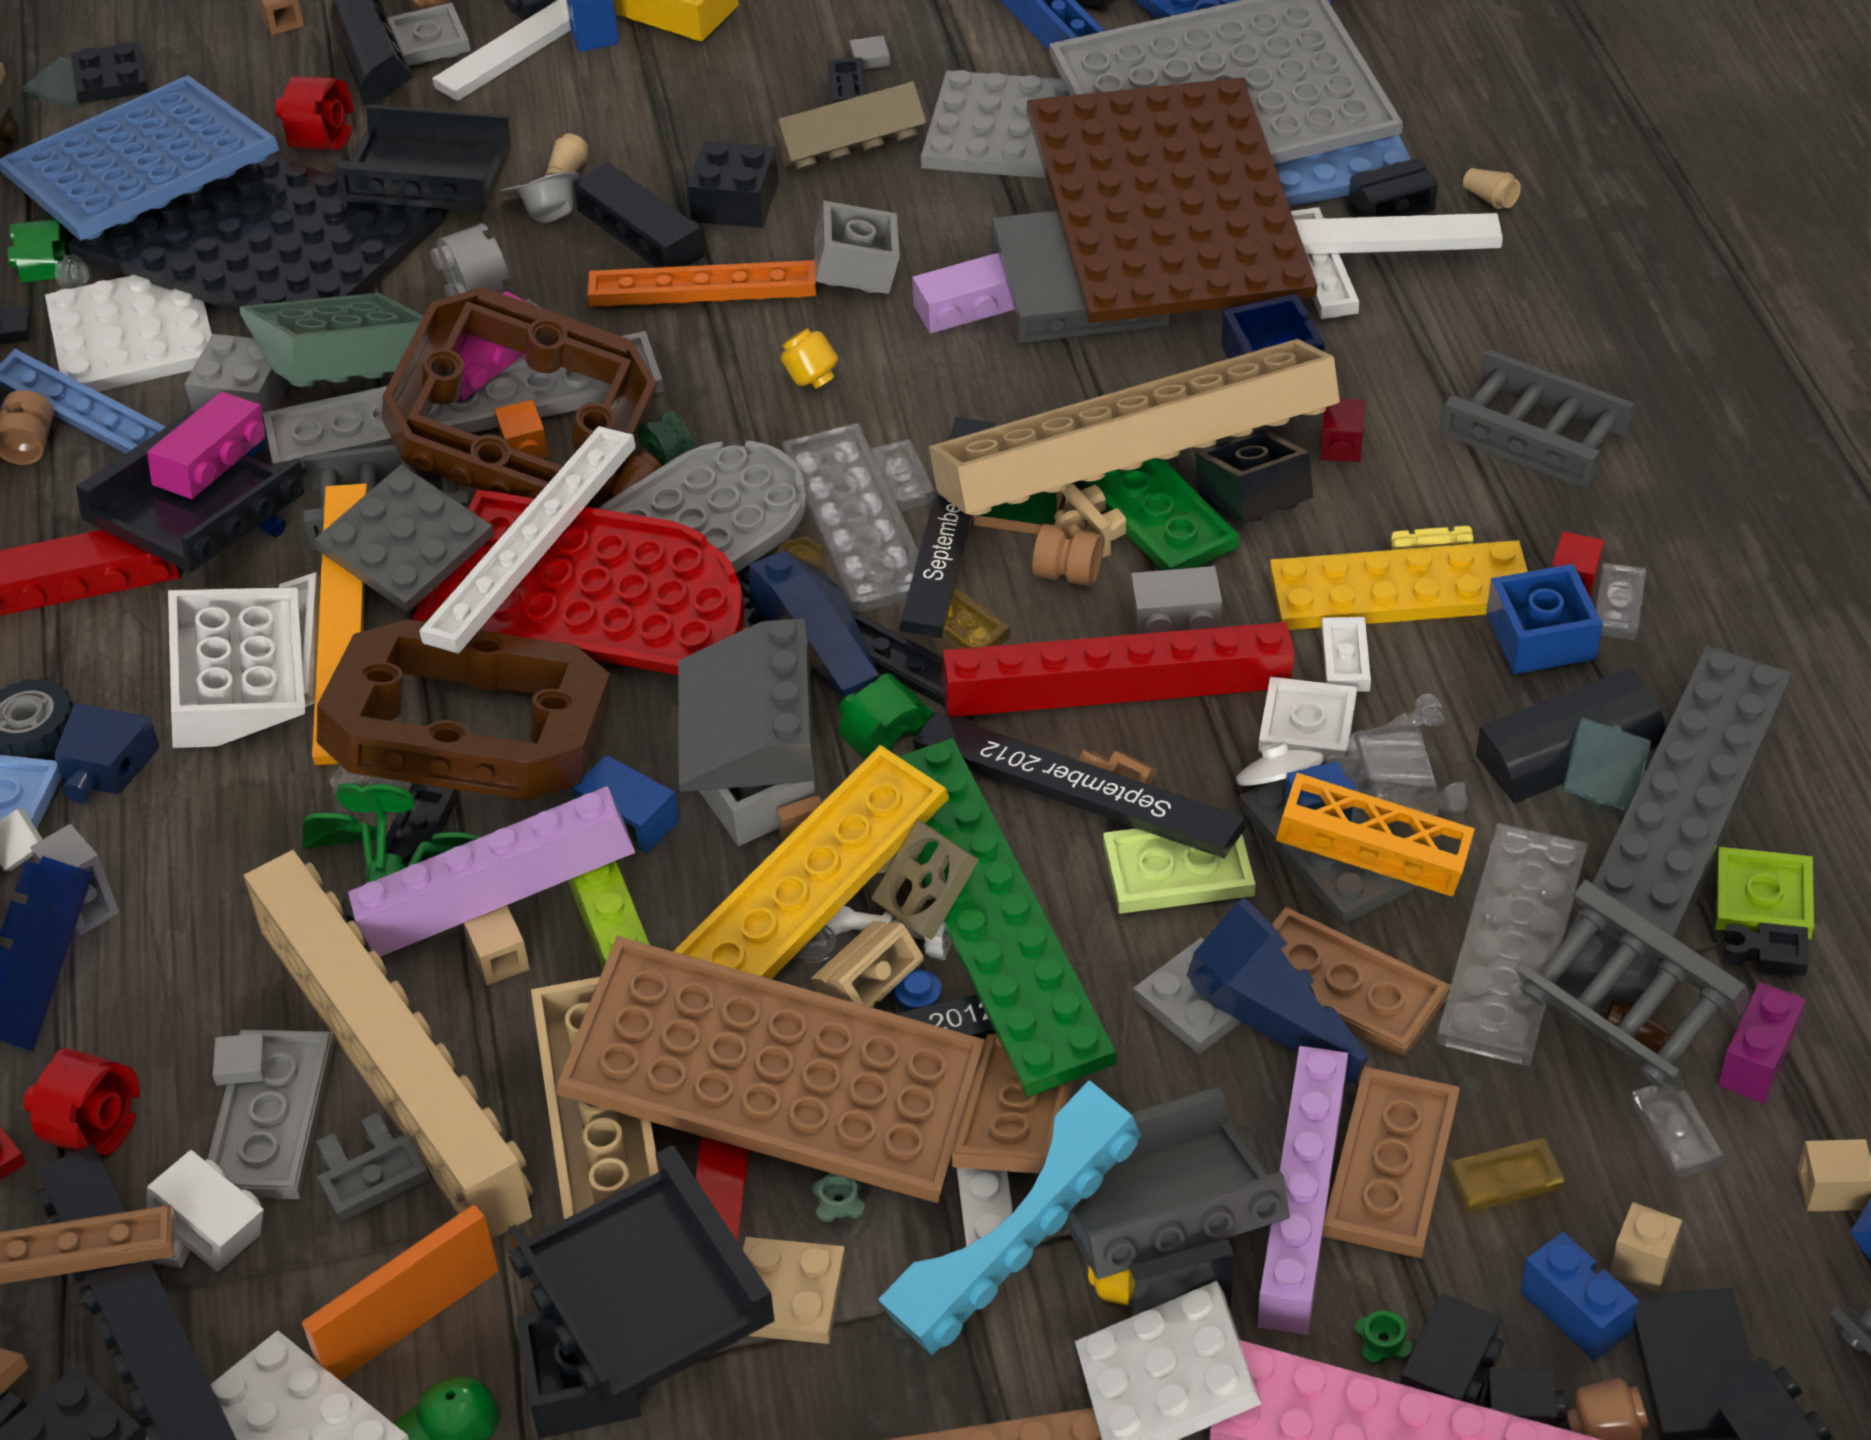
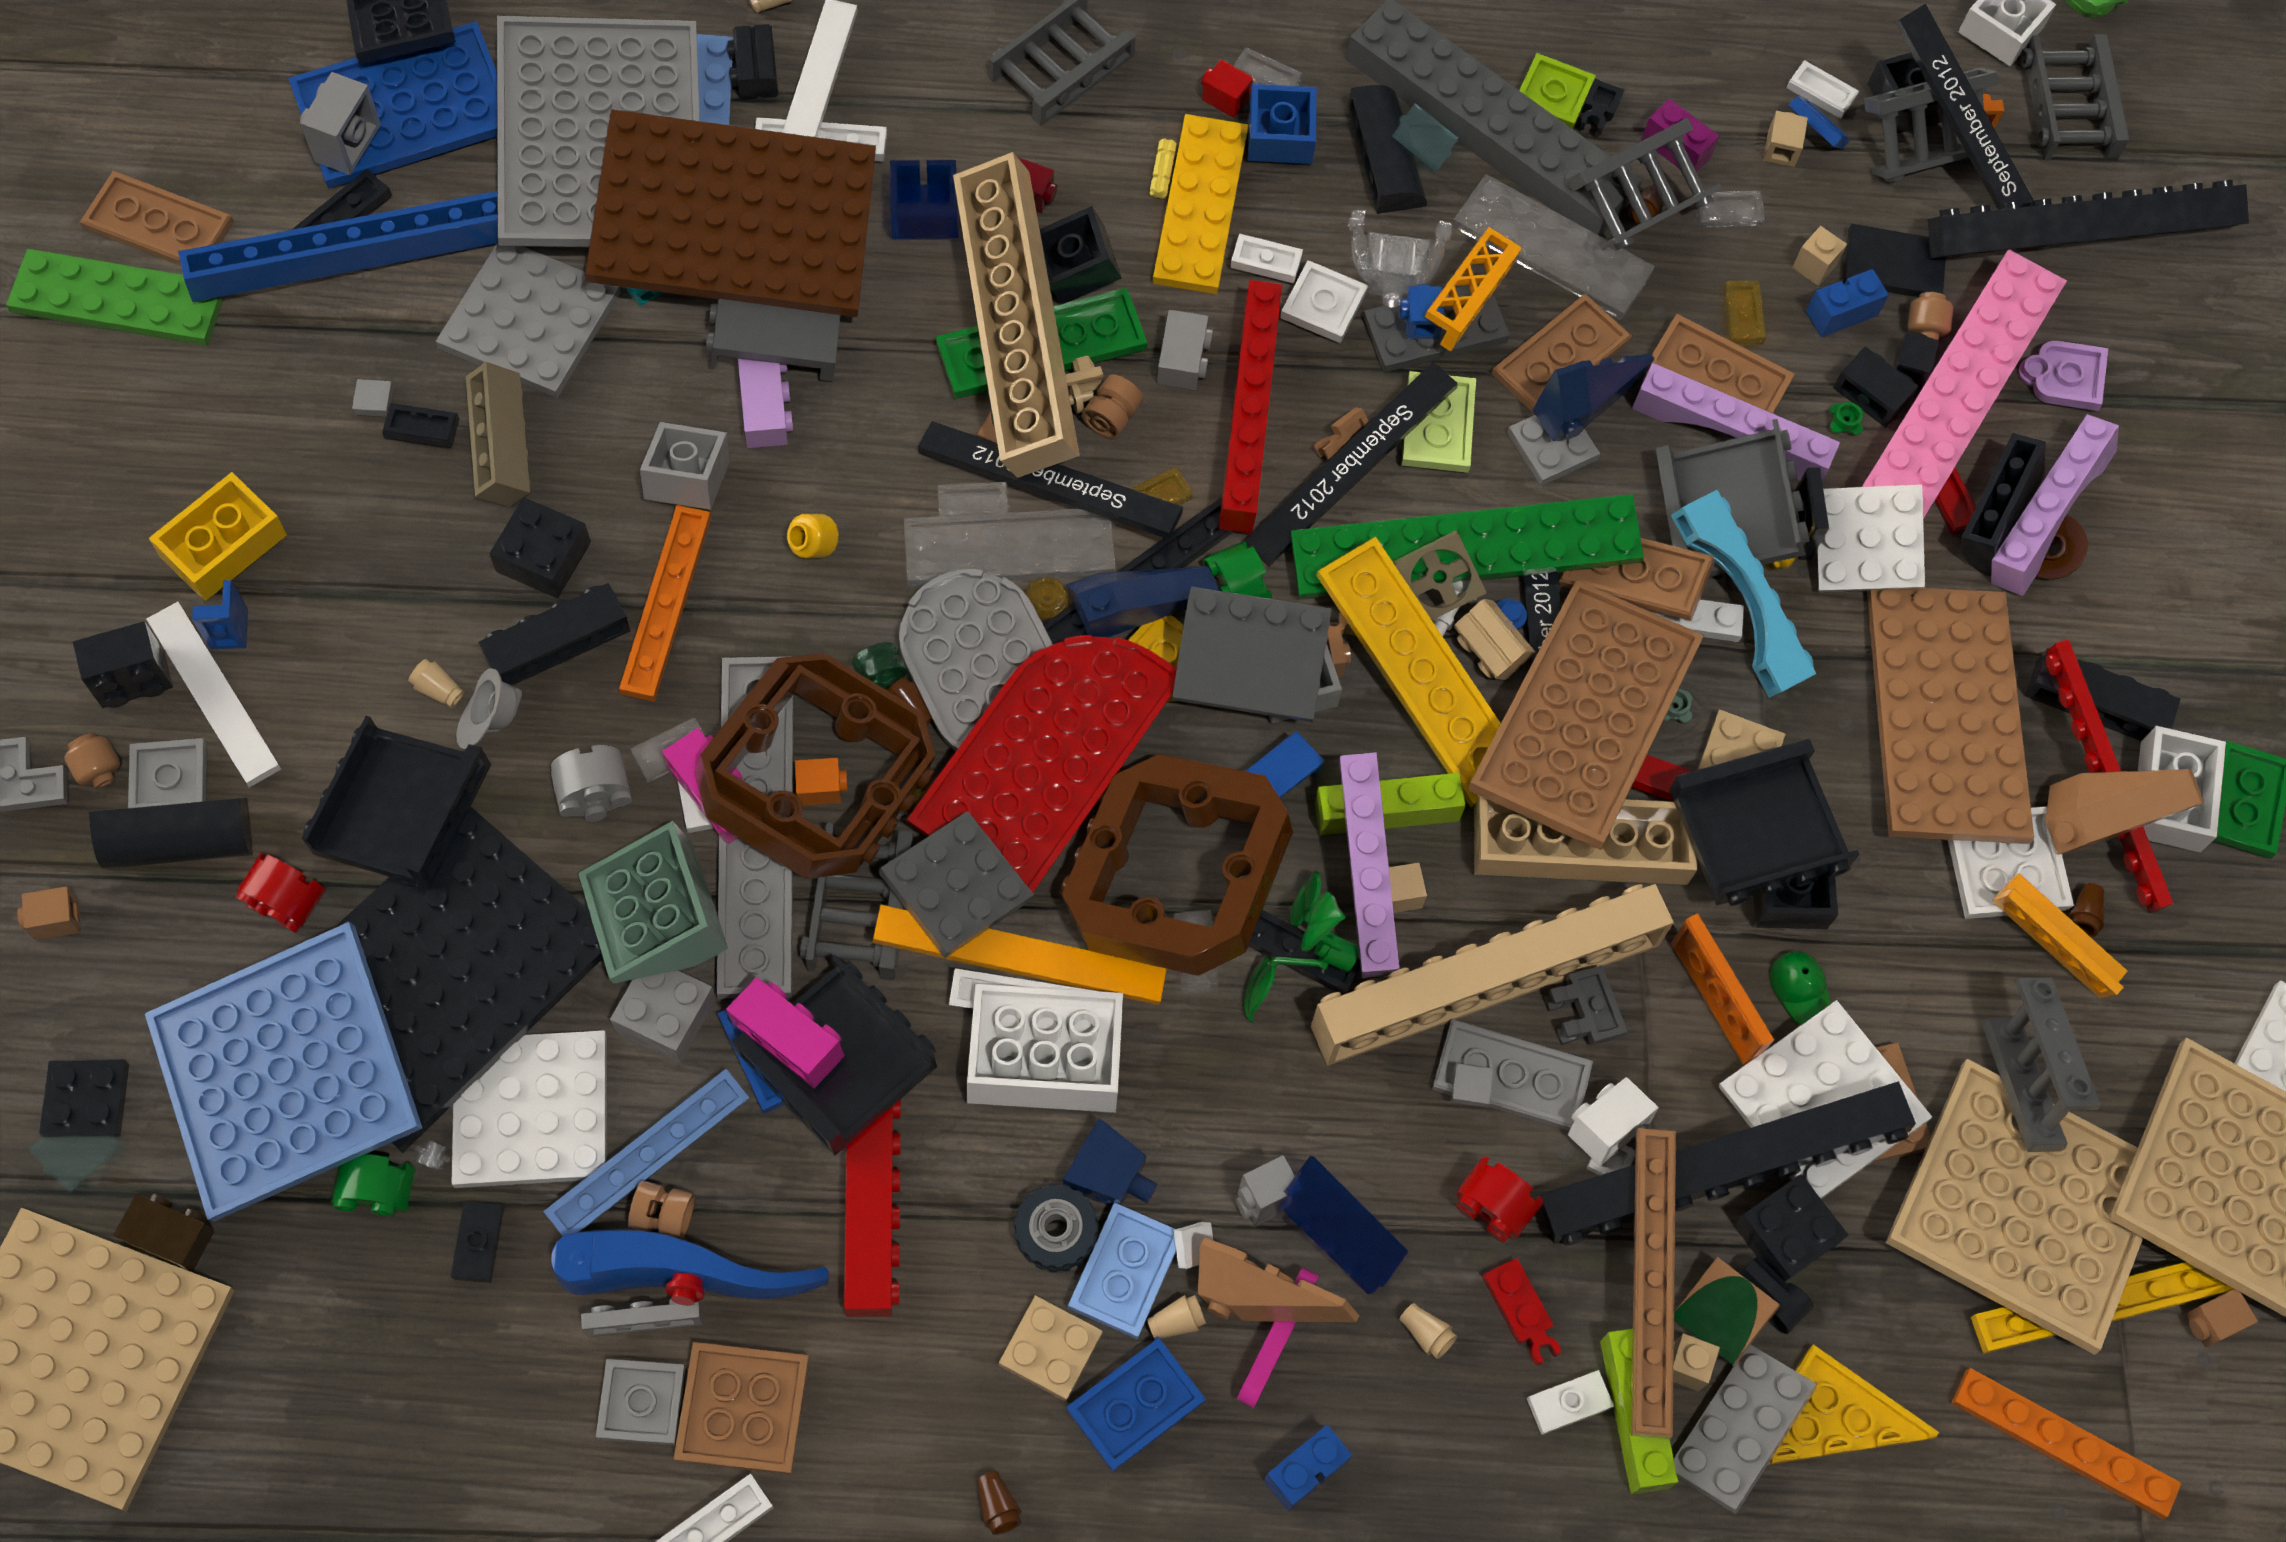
camera: 85 degrees left, 20 degrees up
(527, 540) = (1008, 778): white plate -> none
(1276, 762) = (1375, 331): white dish -> none

